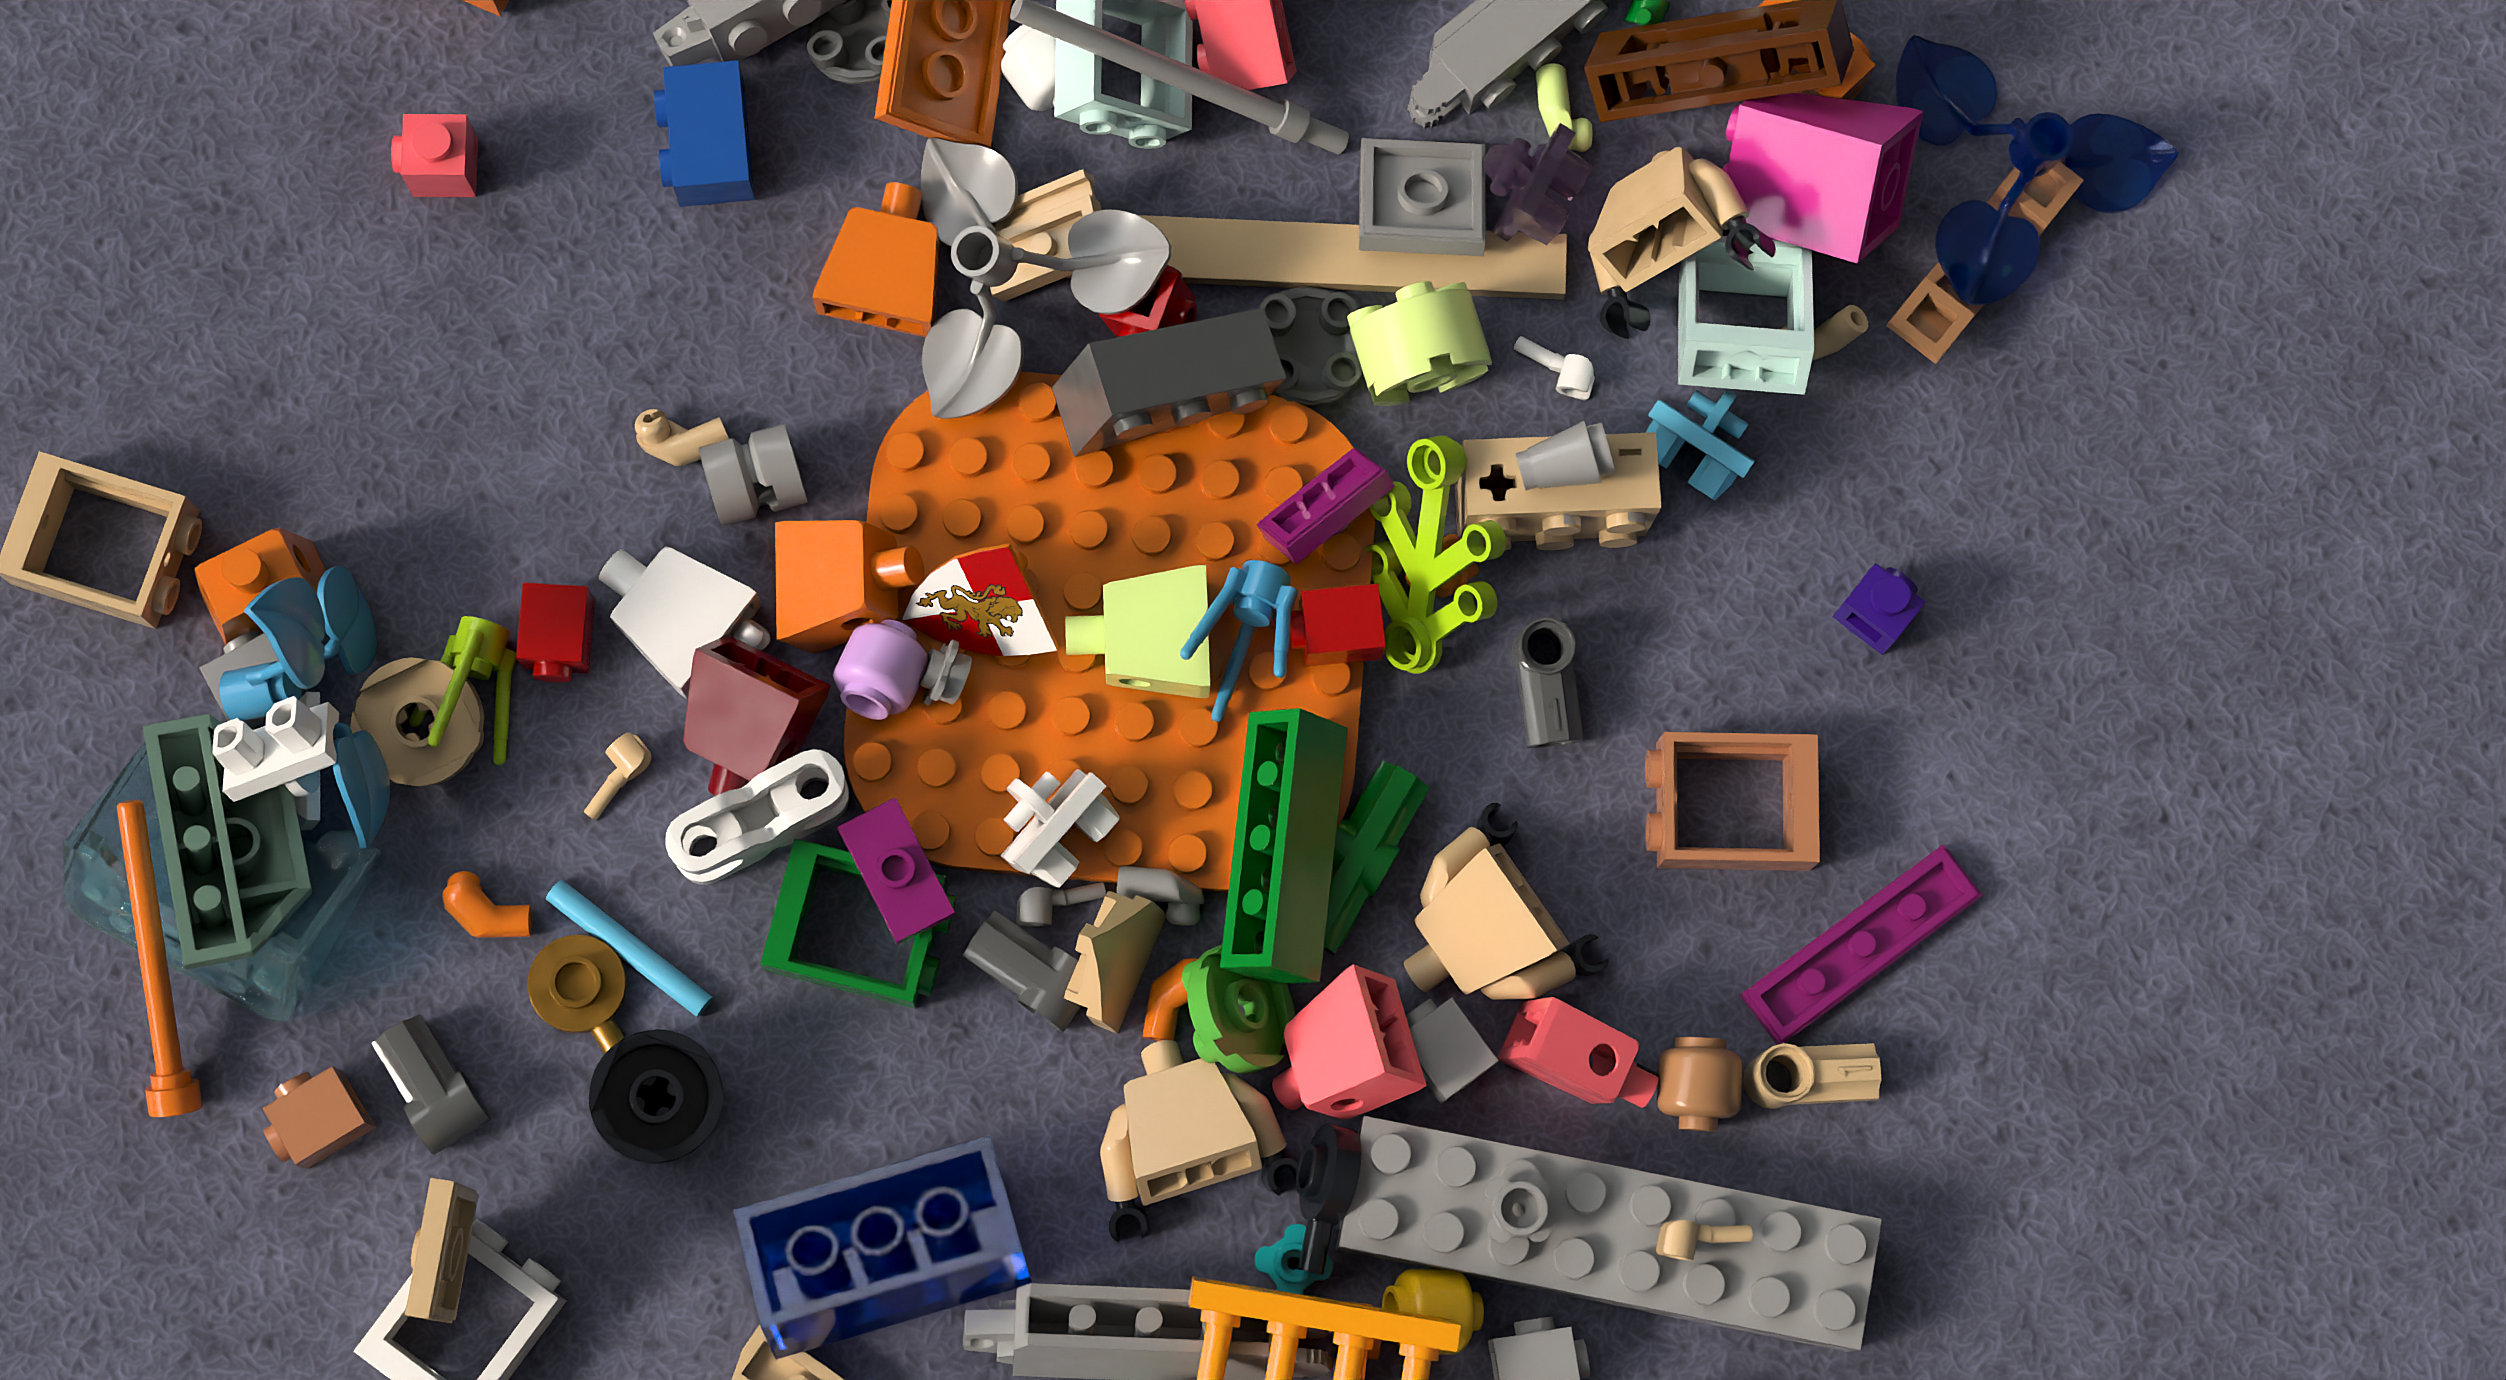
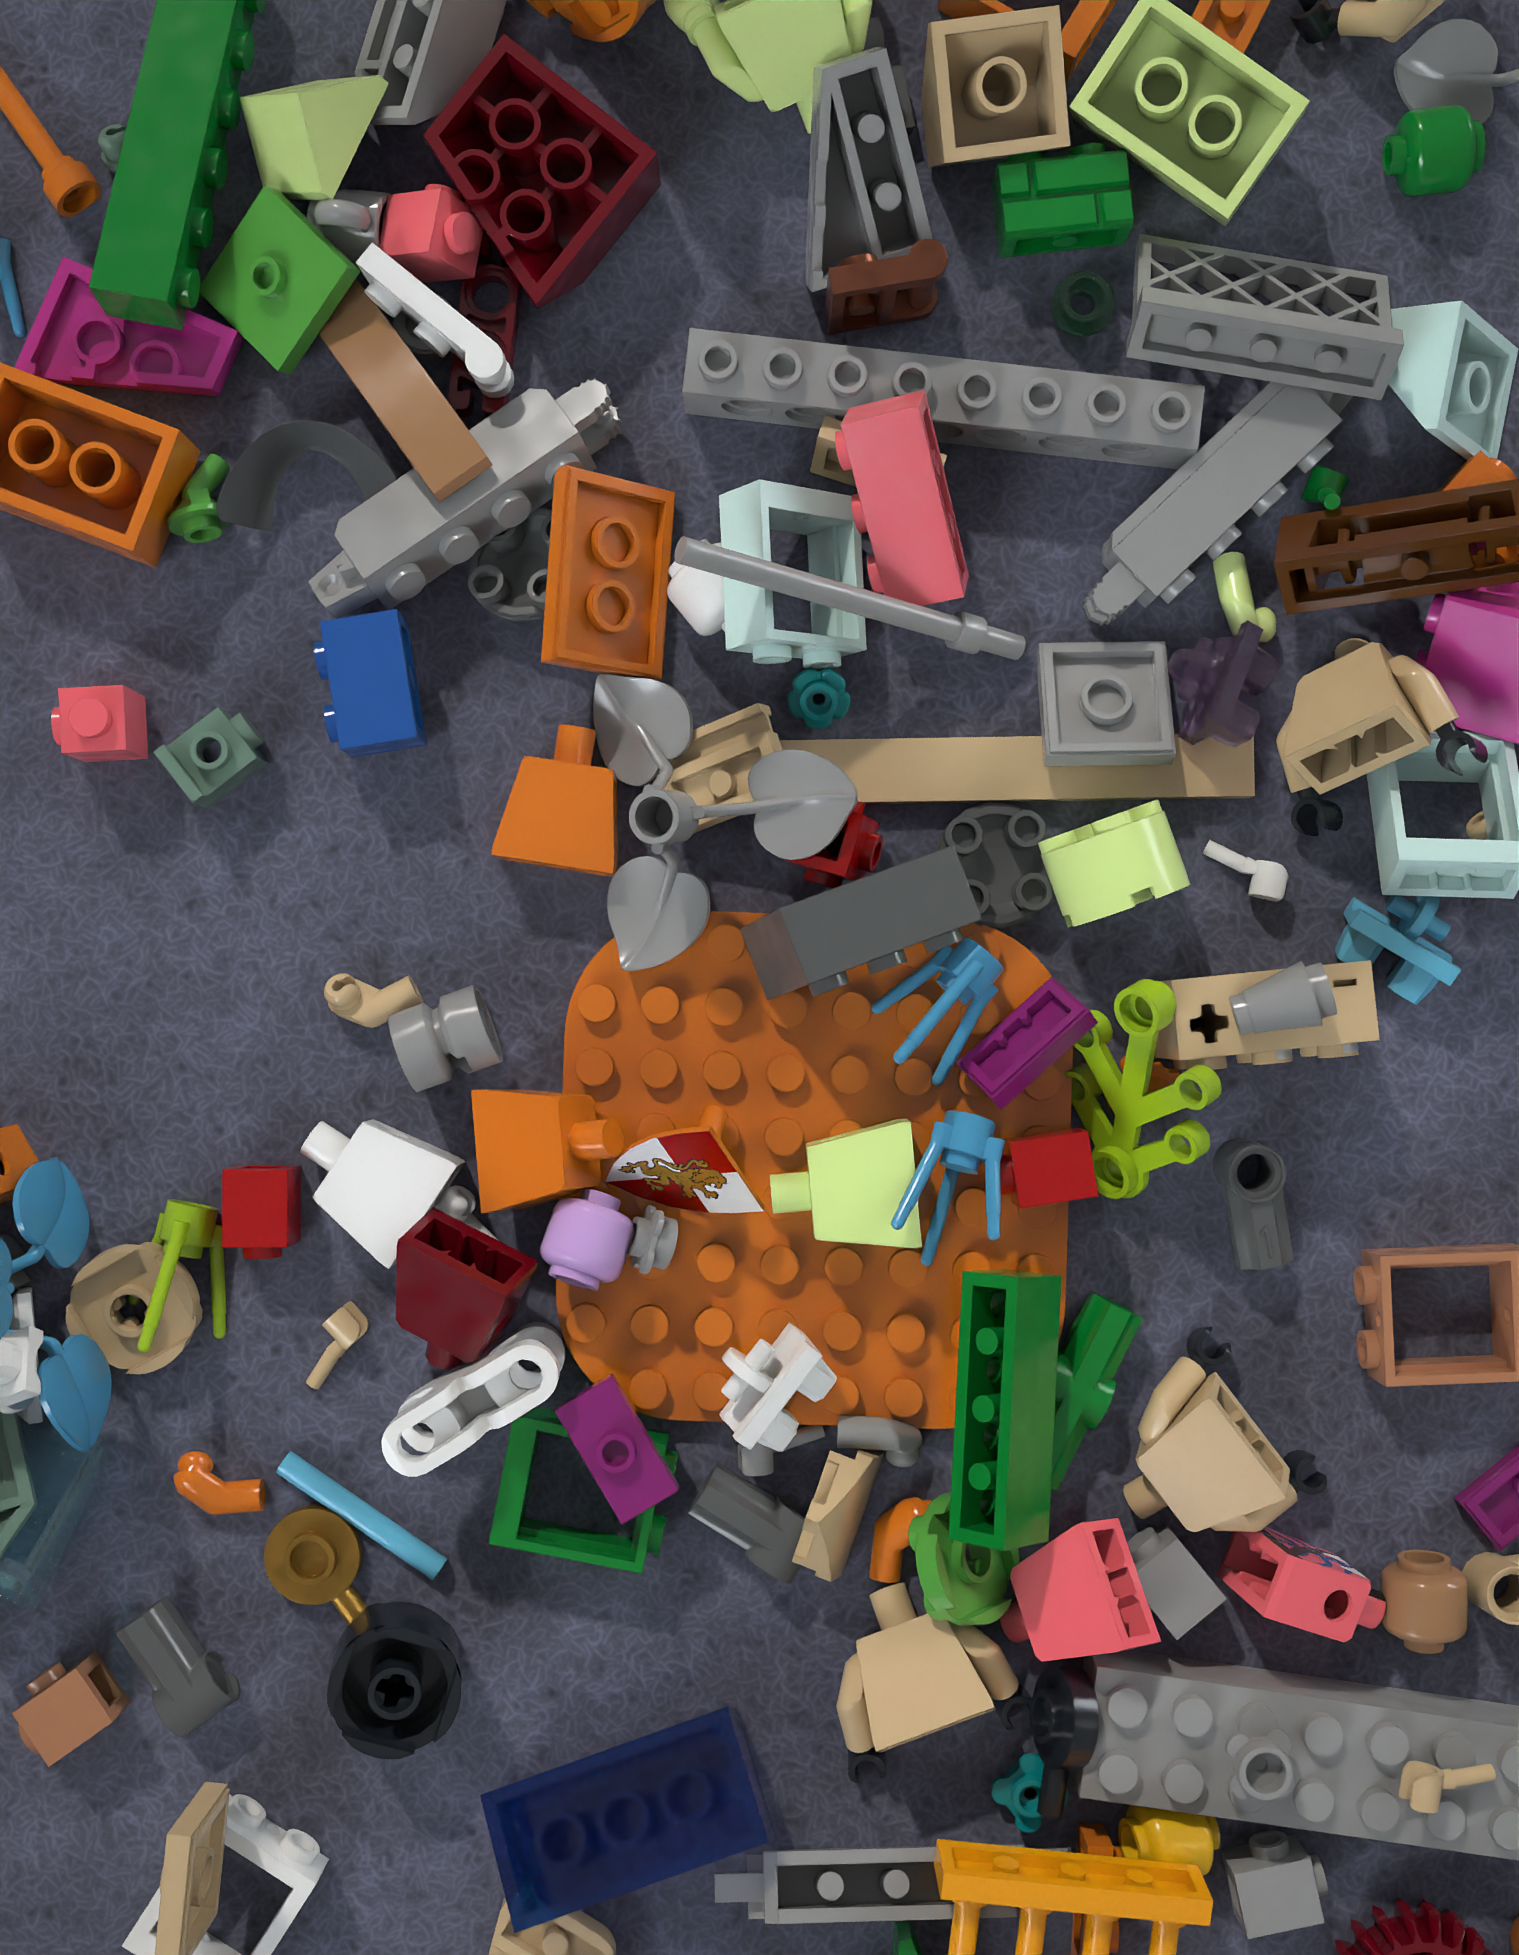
camera: 10 degrees right, 10 degrees up
(545, 214) = (211, 782): none -> sand green brick
(1155, 163) = (816, 681): none -> teal plate
(1265, 439) = (966, 975): none -> dark azure plant

